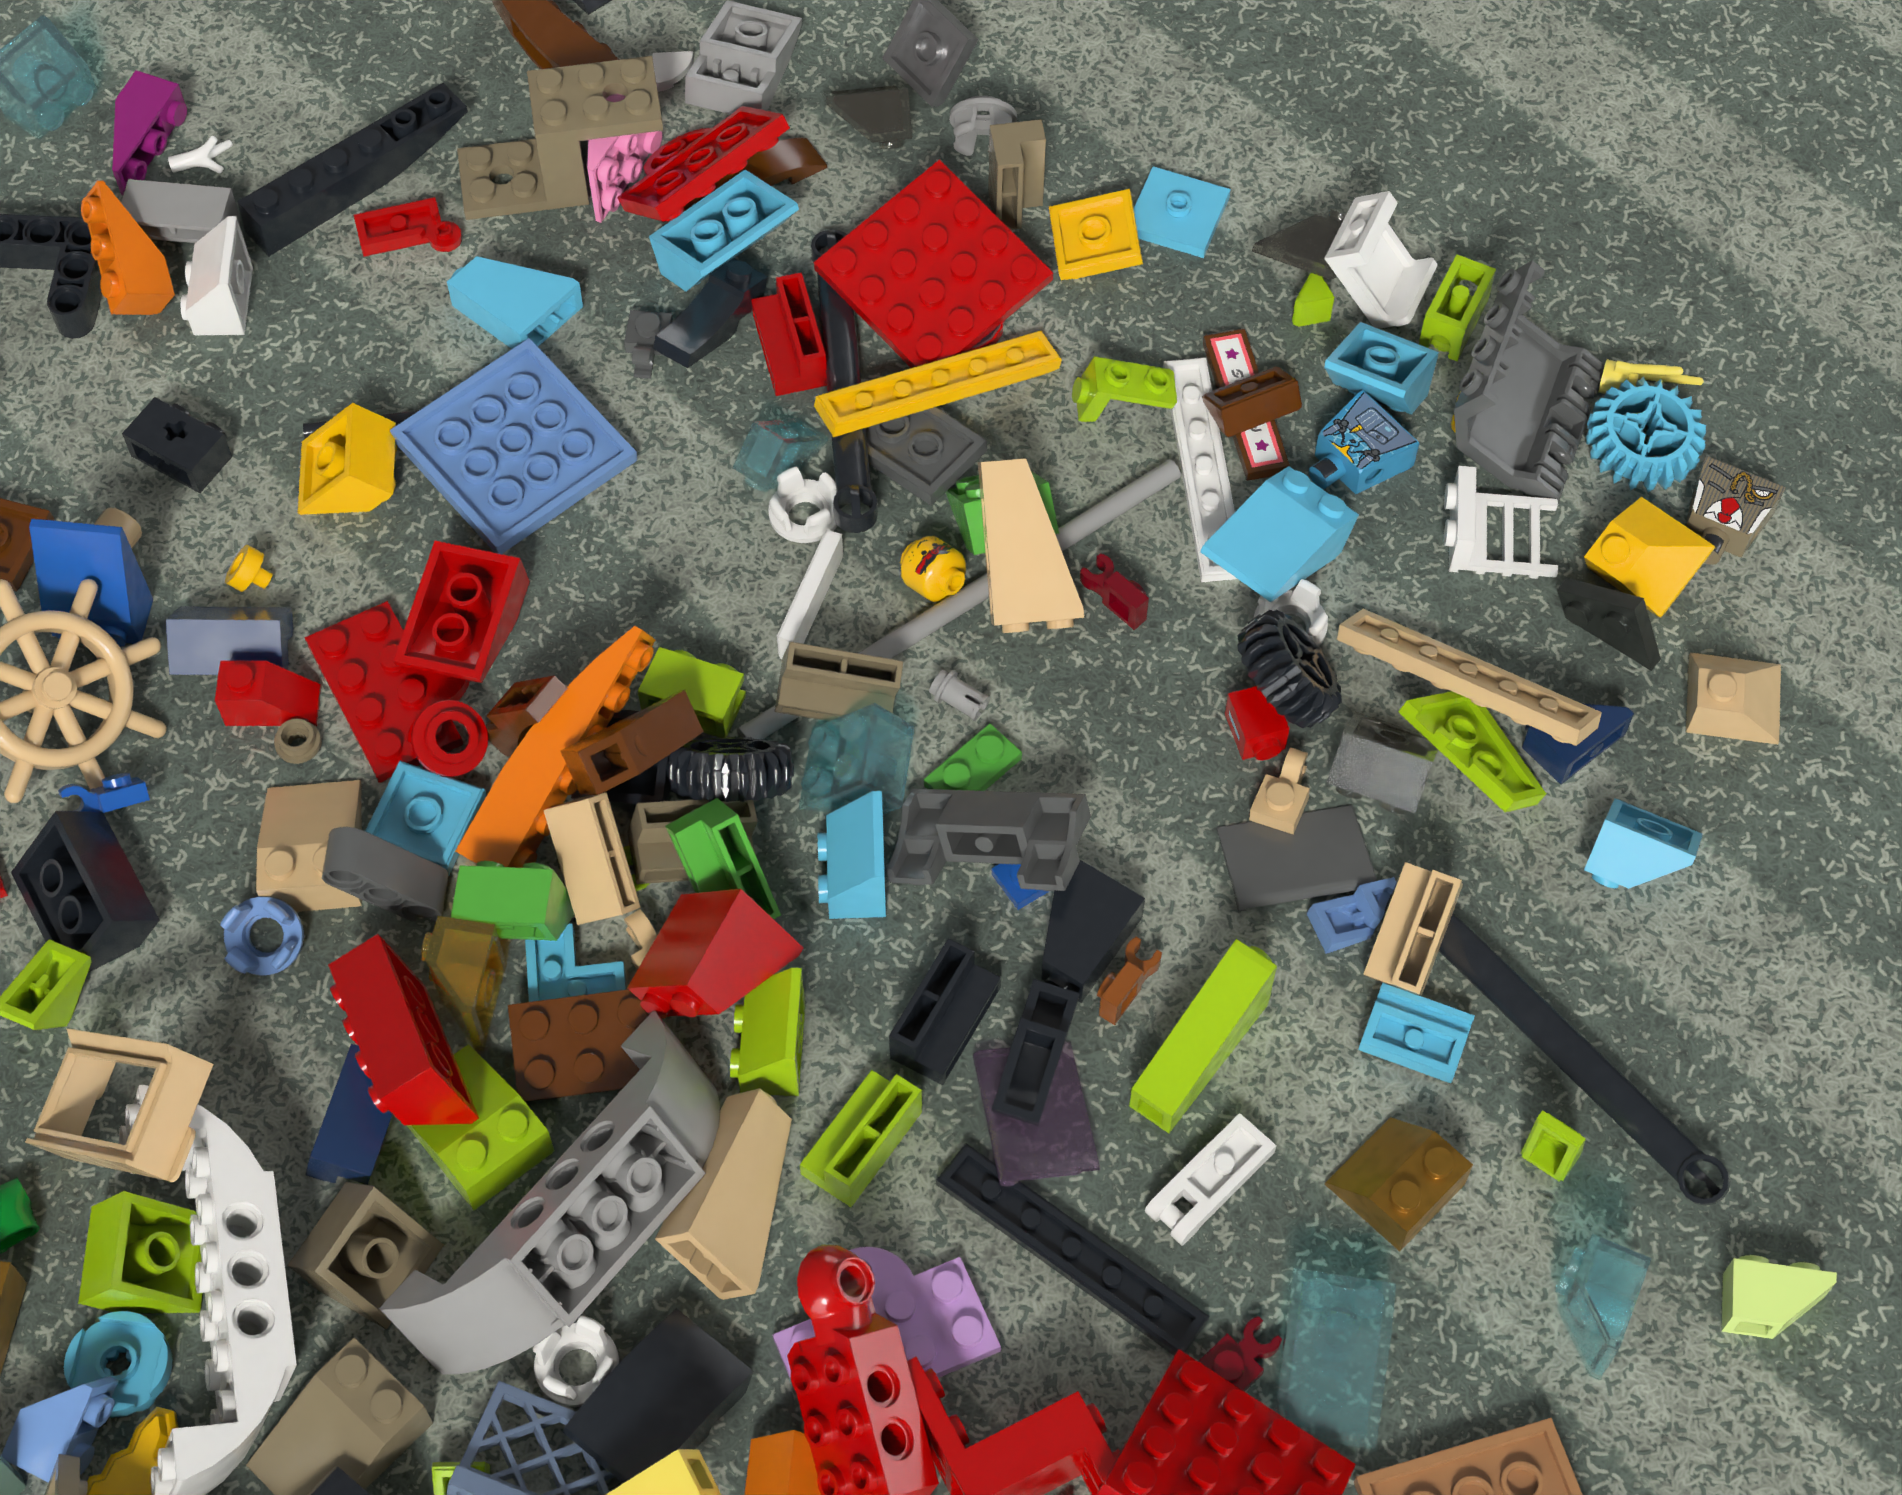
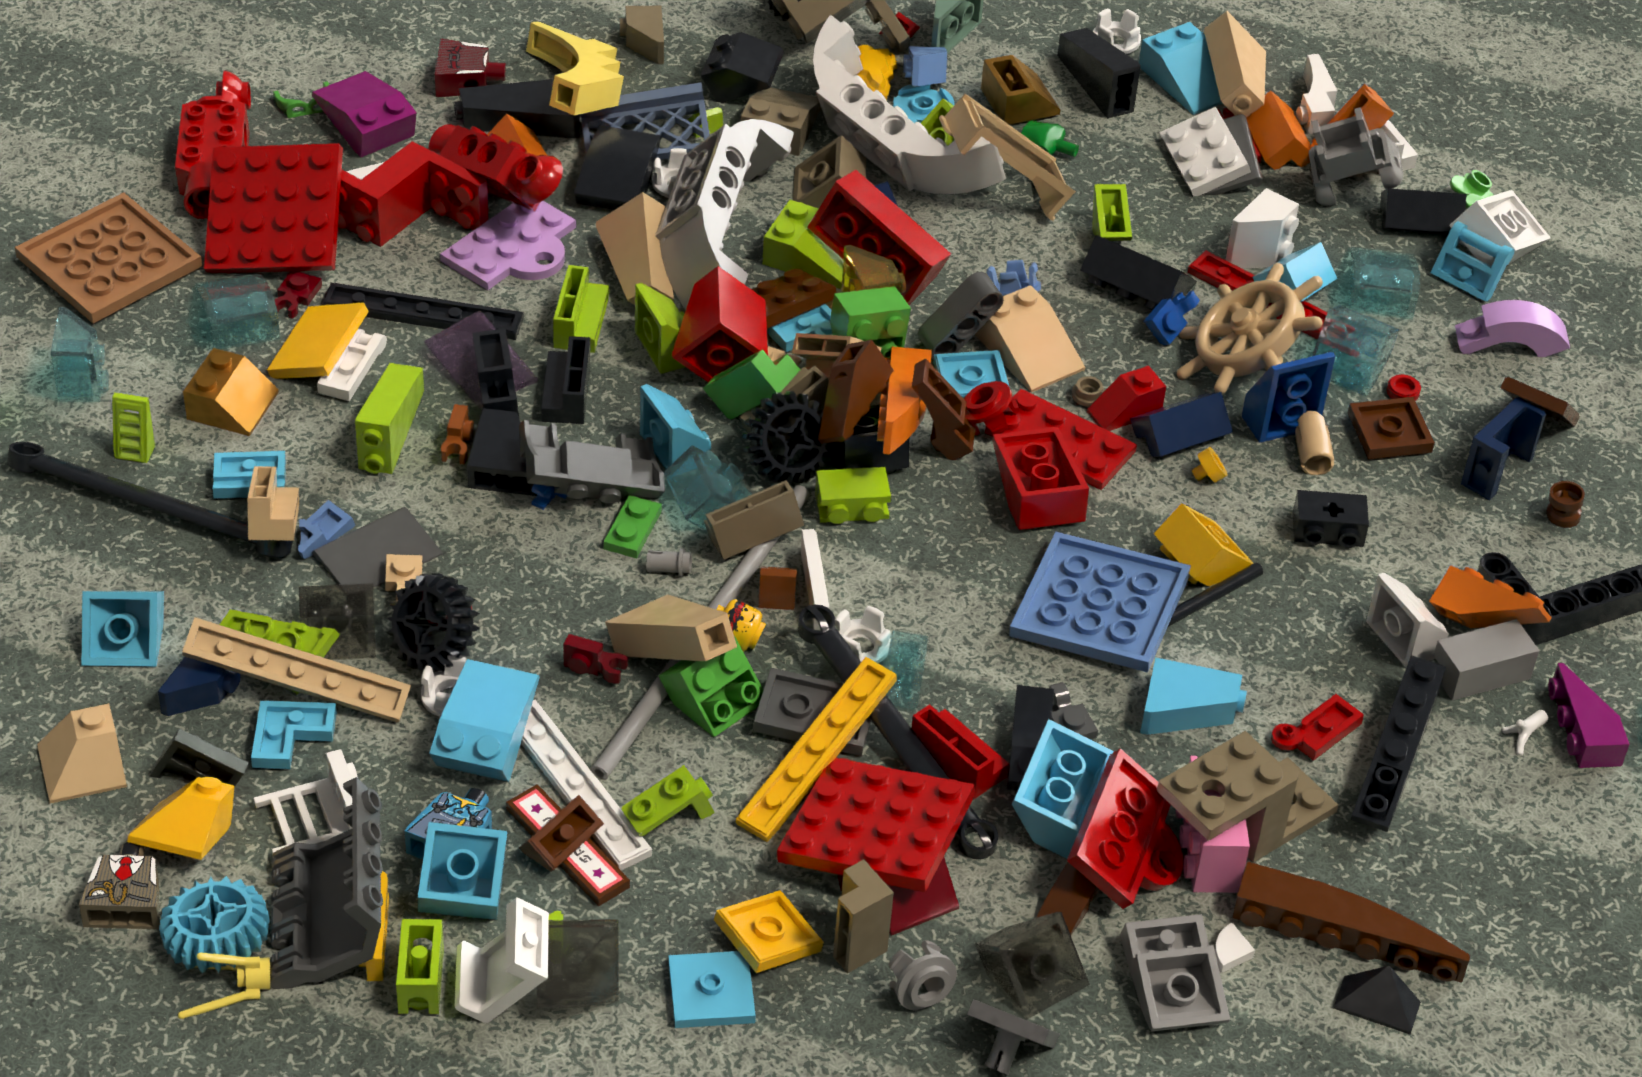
camera: 150 degrees right, 15 degrees down
(853, 608) = (777, 588): none -> dark orange slope
(1245, 1230) = (318, 341): none -> yellow tile
(1501, 644) = (283, 723): none -> medium azure plate

